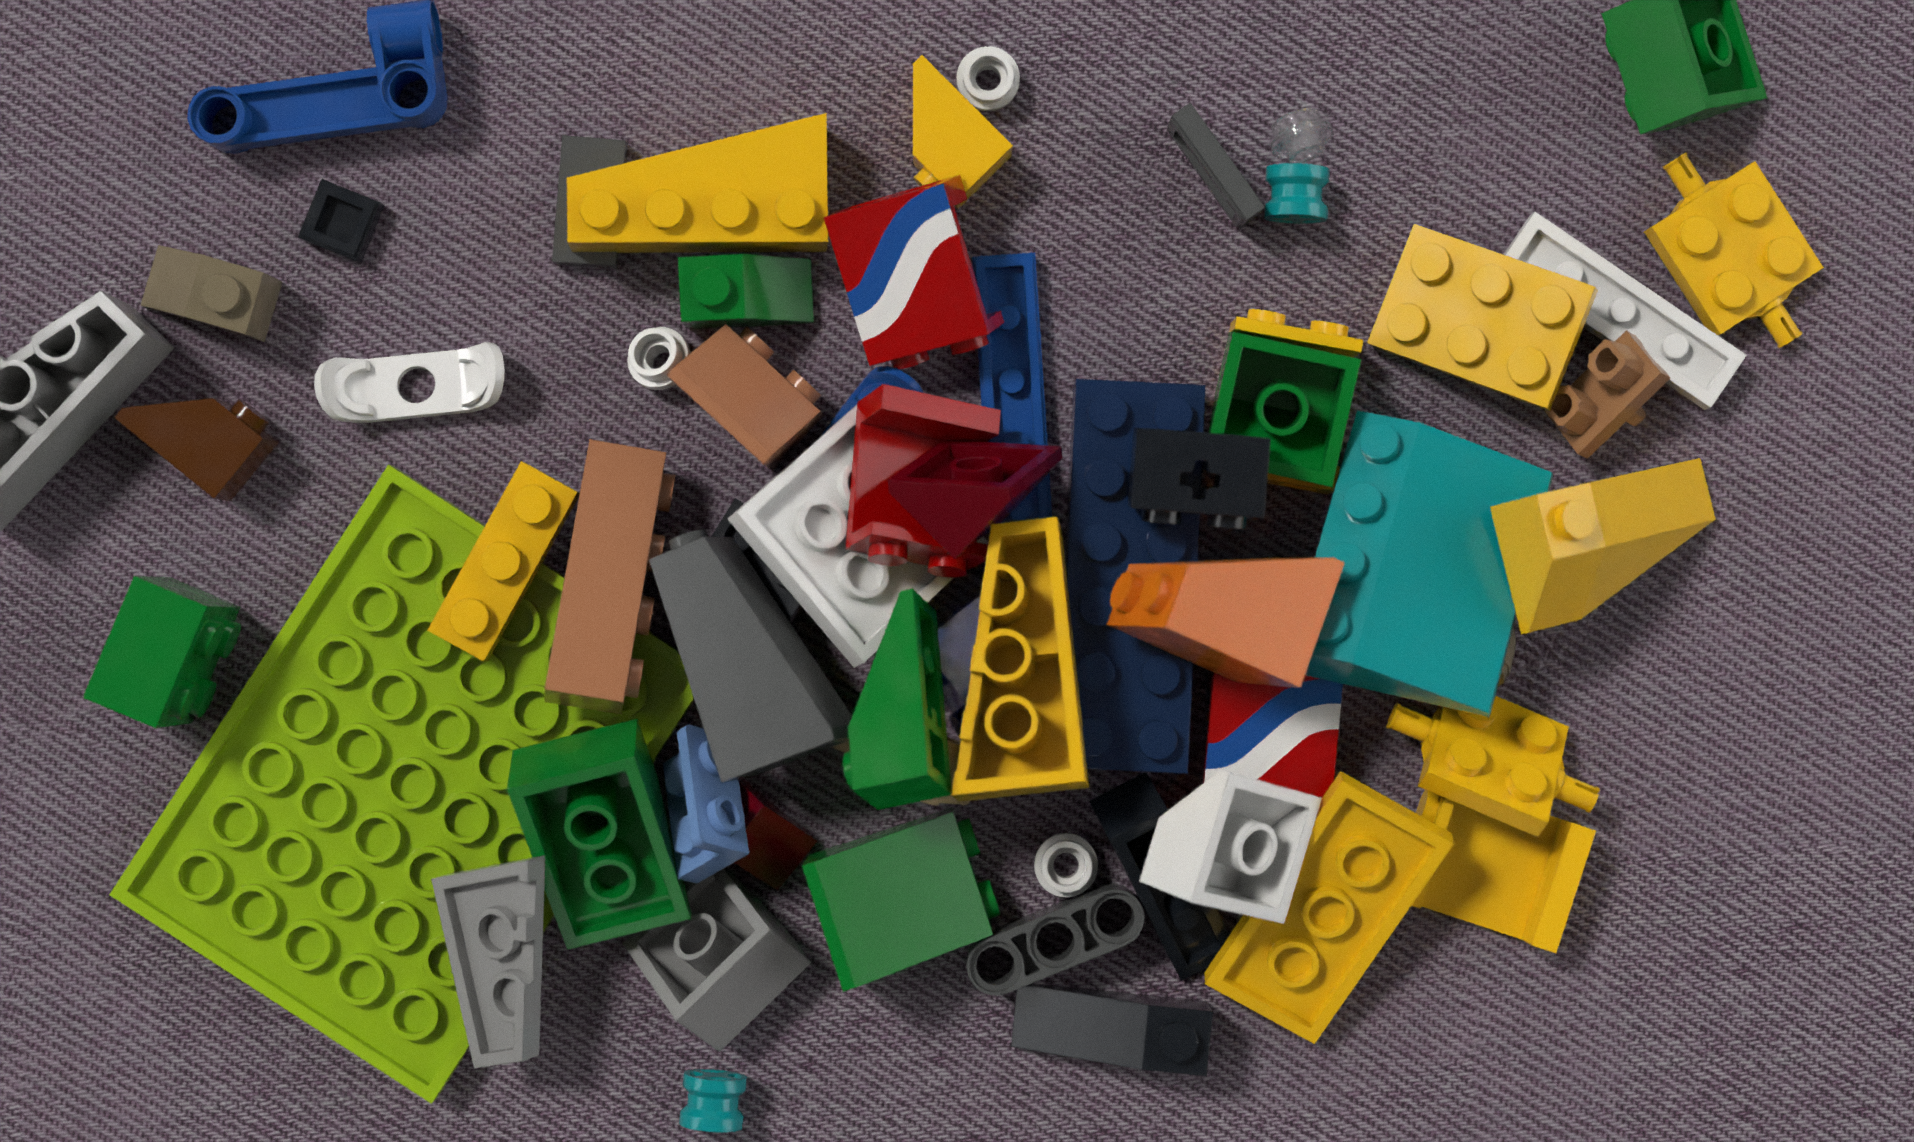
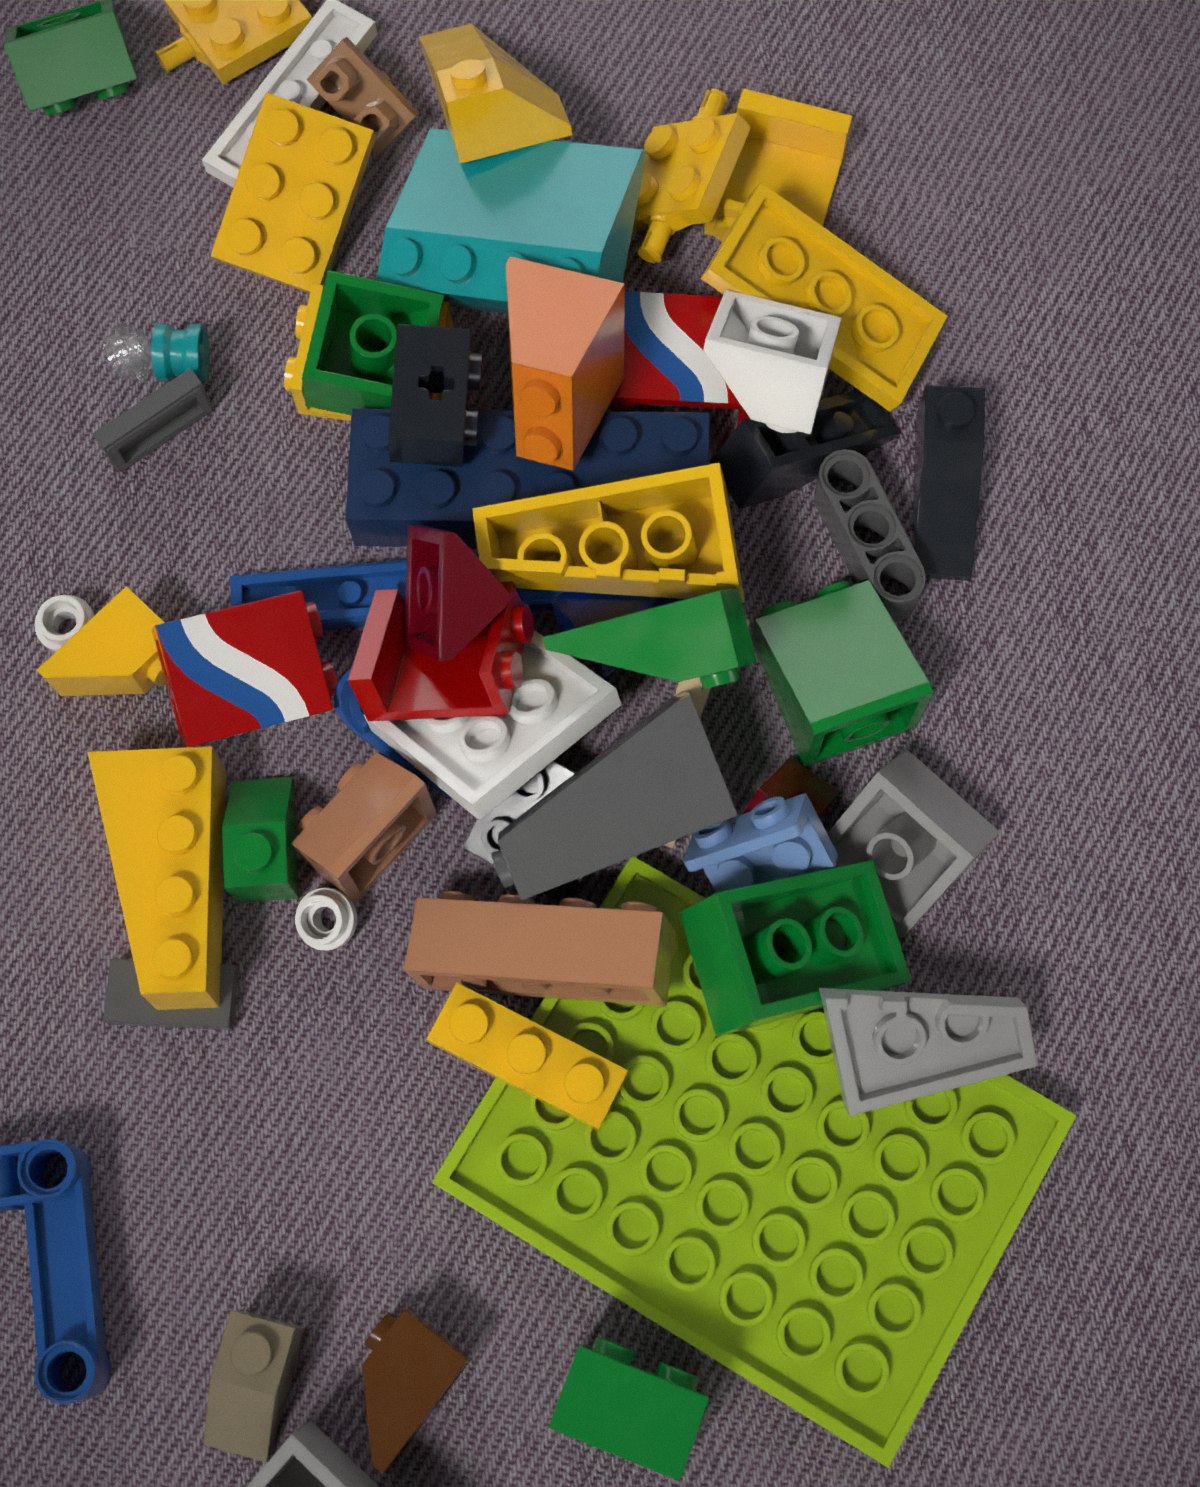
camera: 90 degrees left, 15 degrees down
(341, 221) = (183, 1247): black tile -> none
(370, 387) = (346, 1114): white piece -> none
(713, 1100) = (1047, 840): teal wheel -> none
(1065, 885) = (802, 517): white plate -> none

